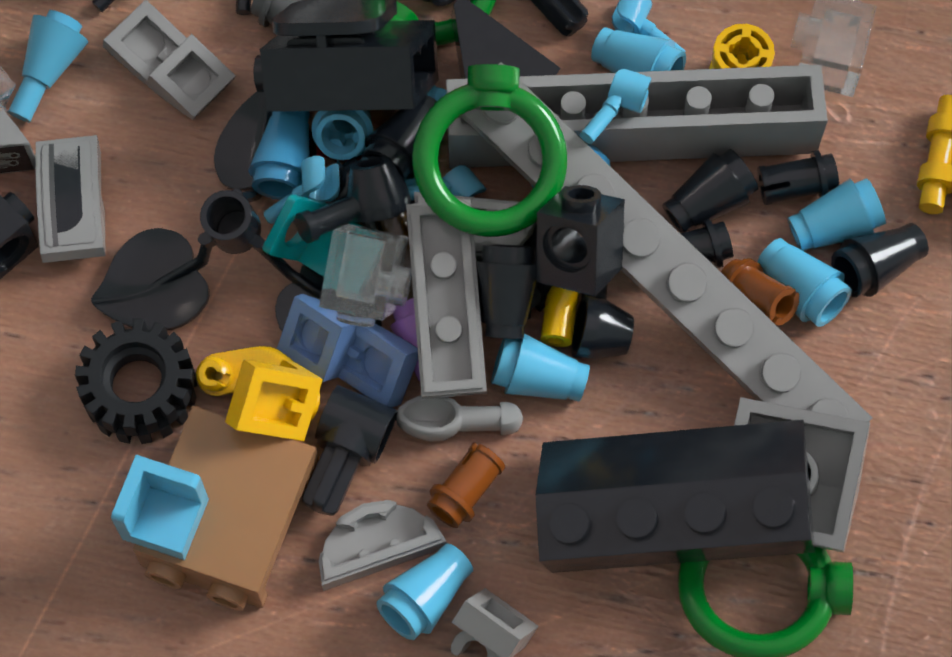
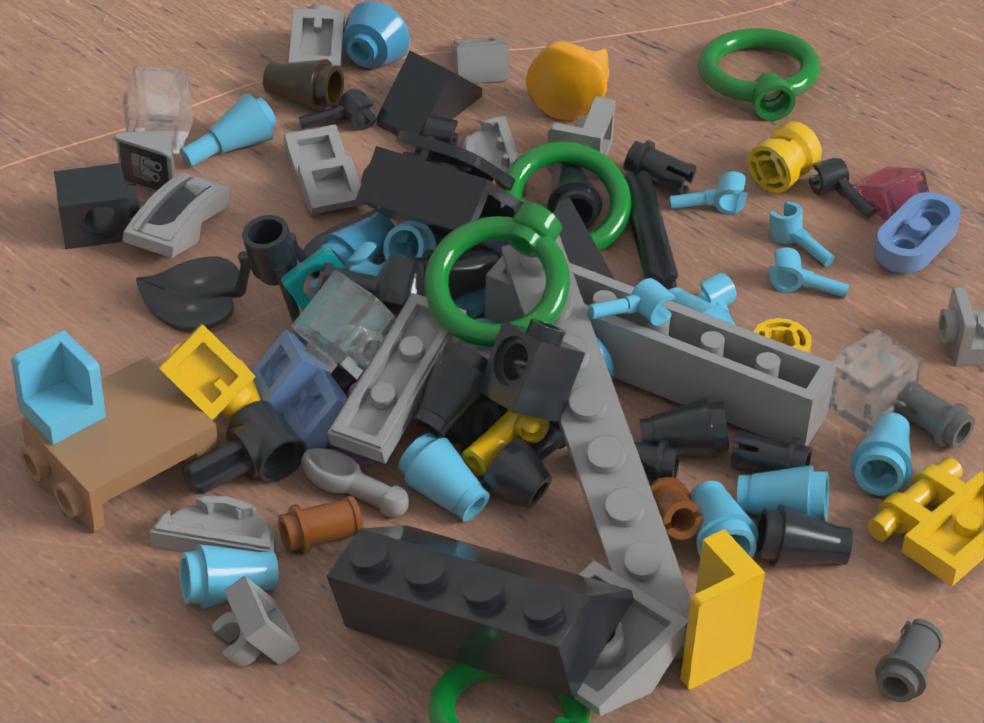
camera: 30 degrees right, 25 degrees down
(127, 346) = (125, 317): black tyre -> none
(881, 383) = (721, 611): none -> yellow panel
(891, 122) = (884, 456): none -> medium azure cone
(904, 50) = (944, 421): none -> dark grey pin

